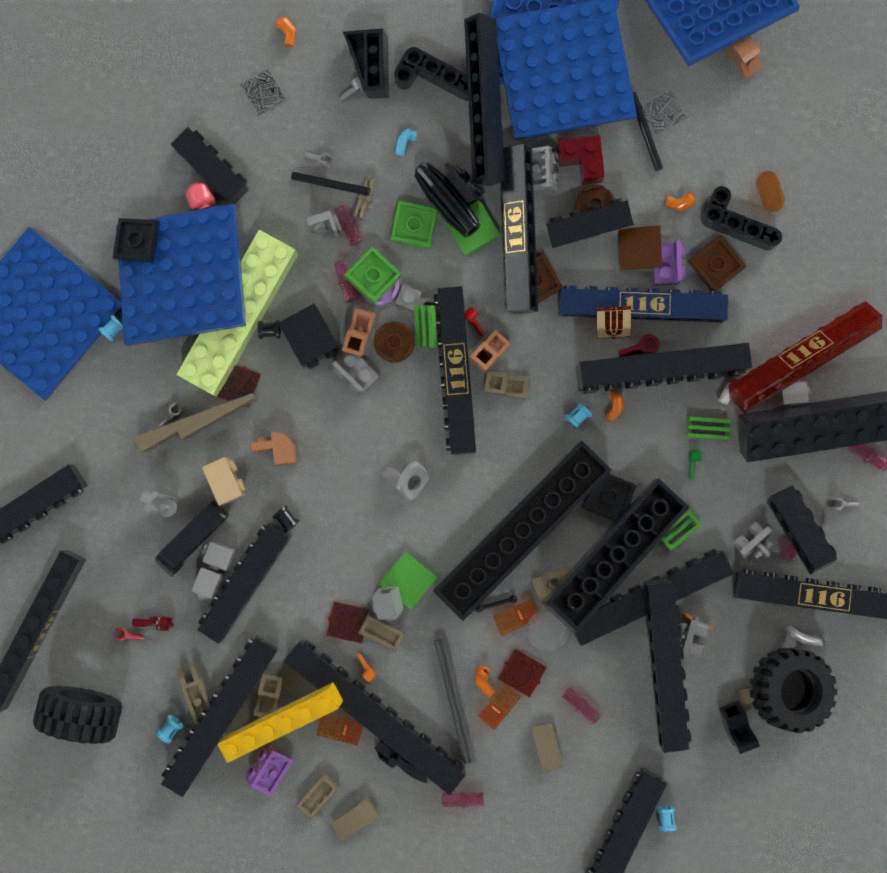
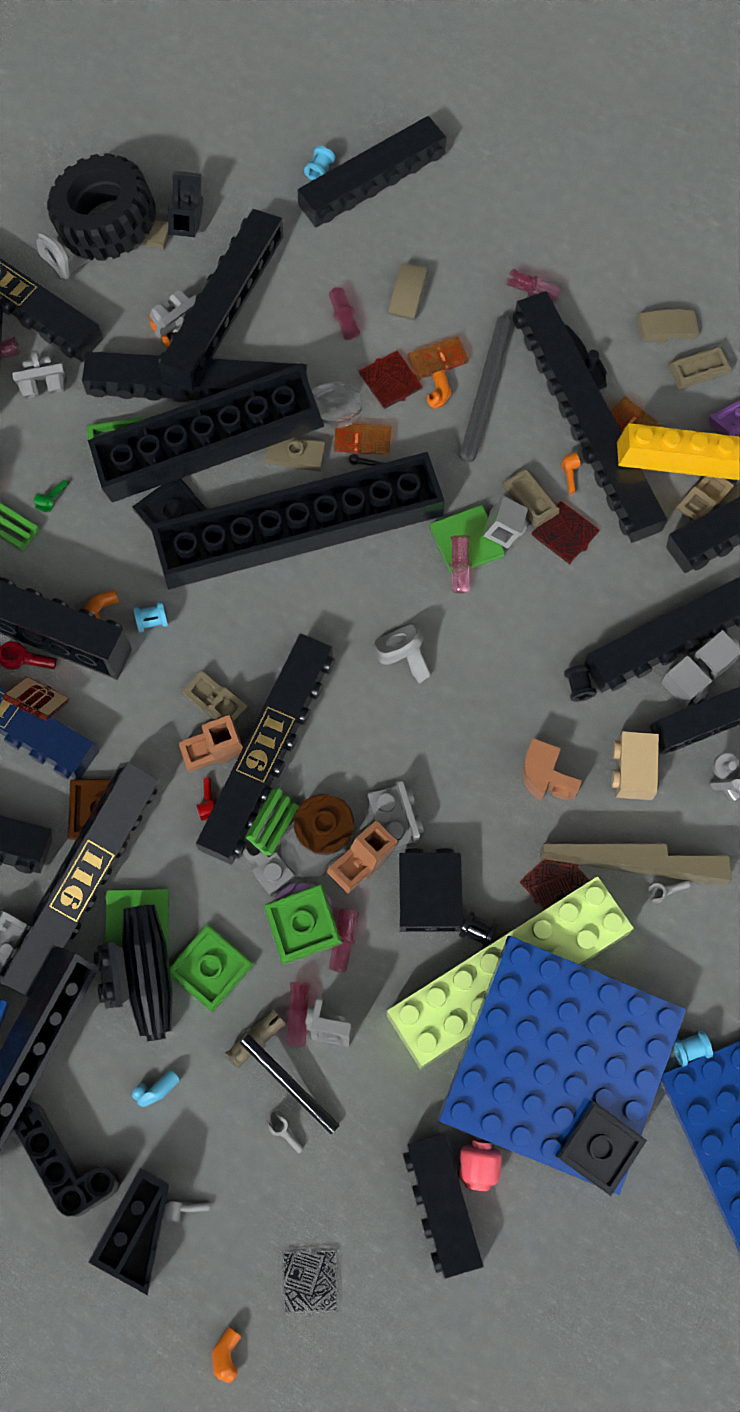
camera: 155 degrees left, 15 degrees down
(401, 557) = (460, 564): none -> clear pink axle

